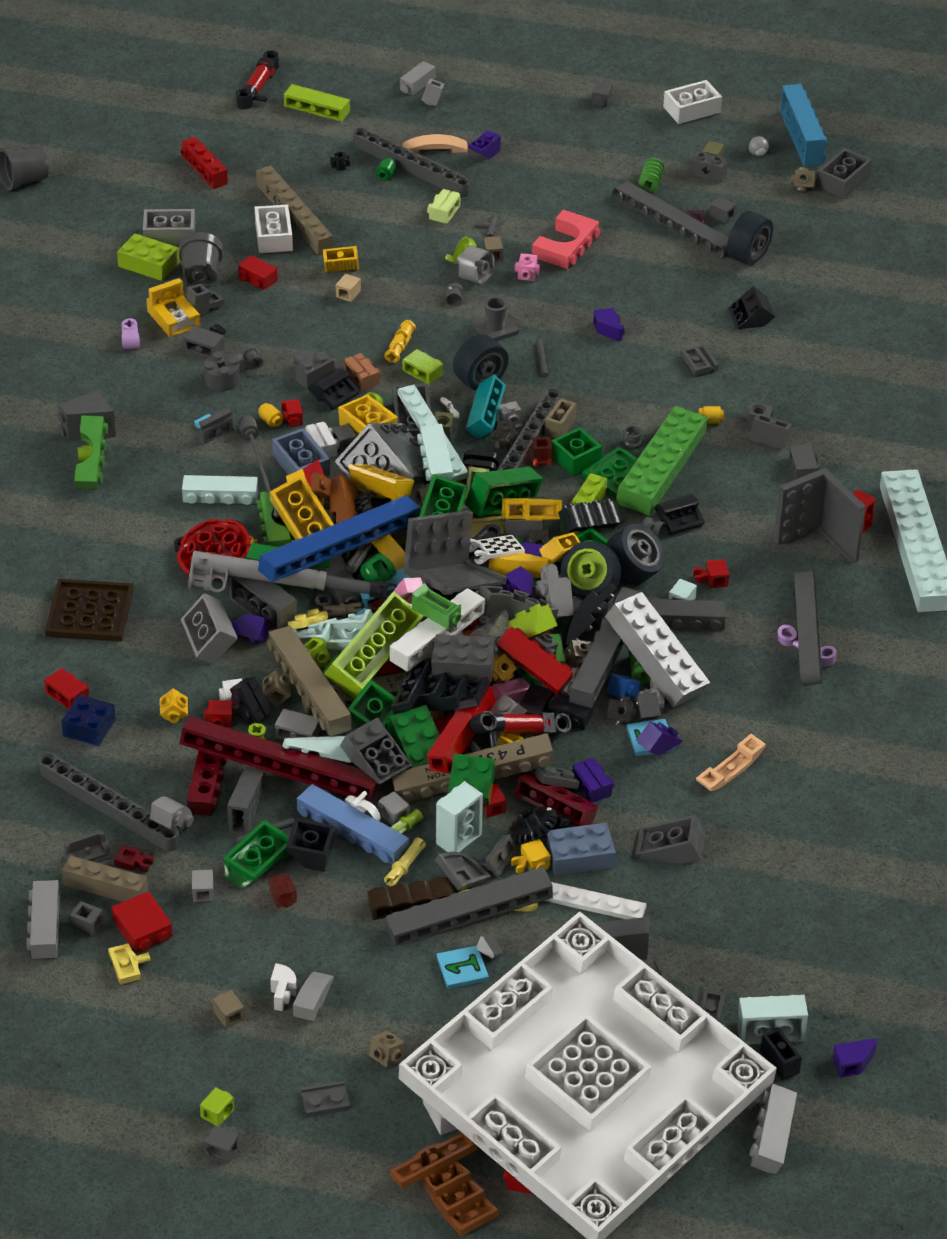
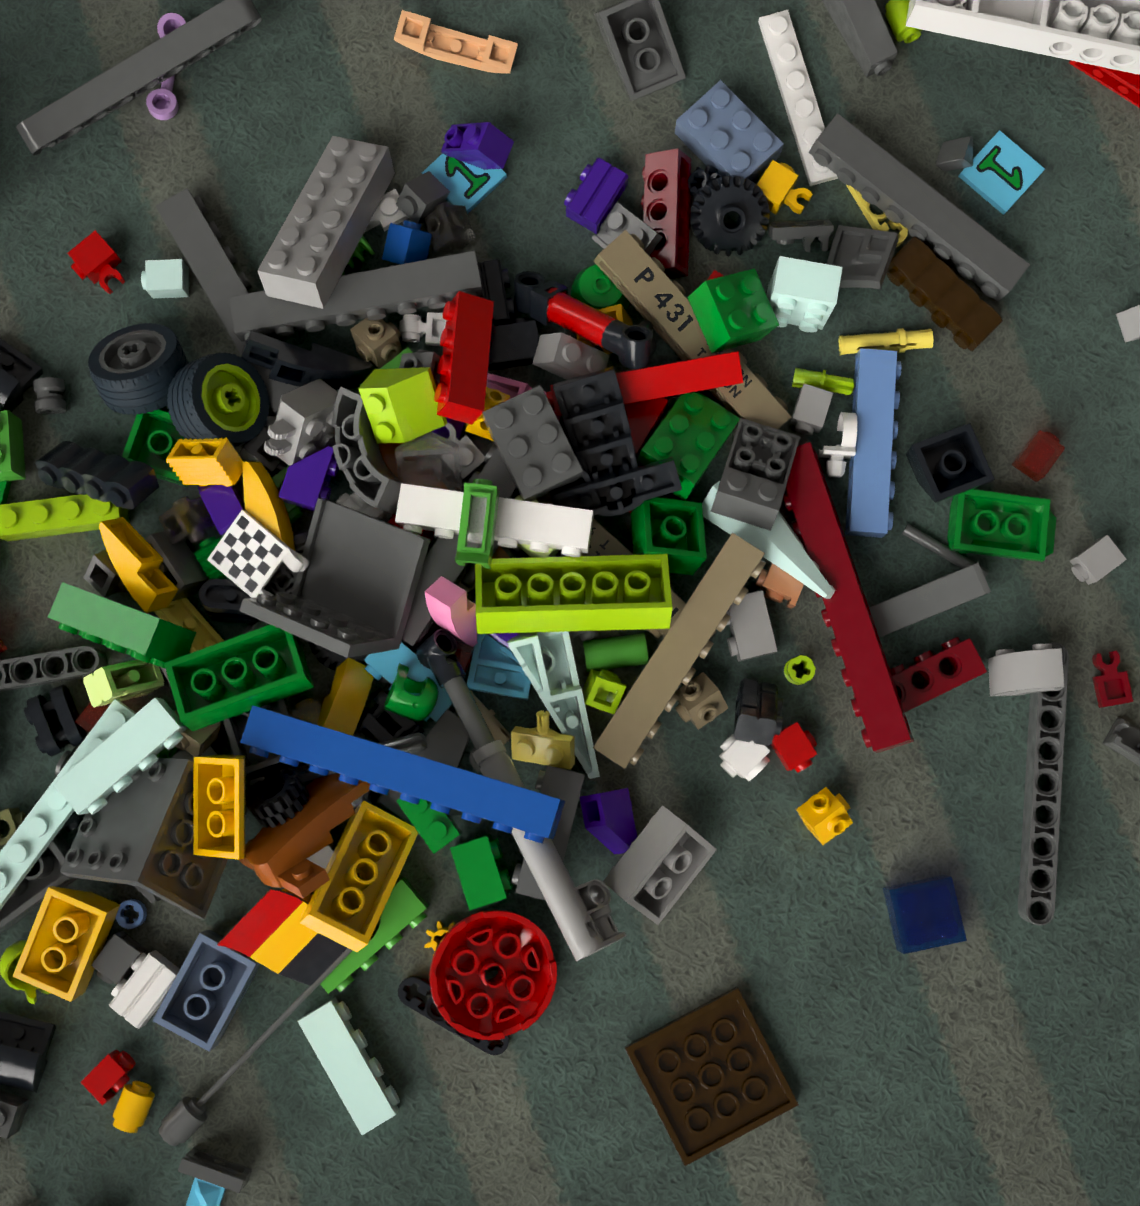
camera: 120 degrees left, 40 degrees up
(65, 687) = (884, 989): red brick -> none

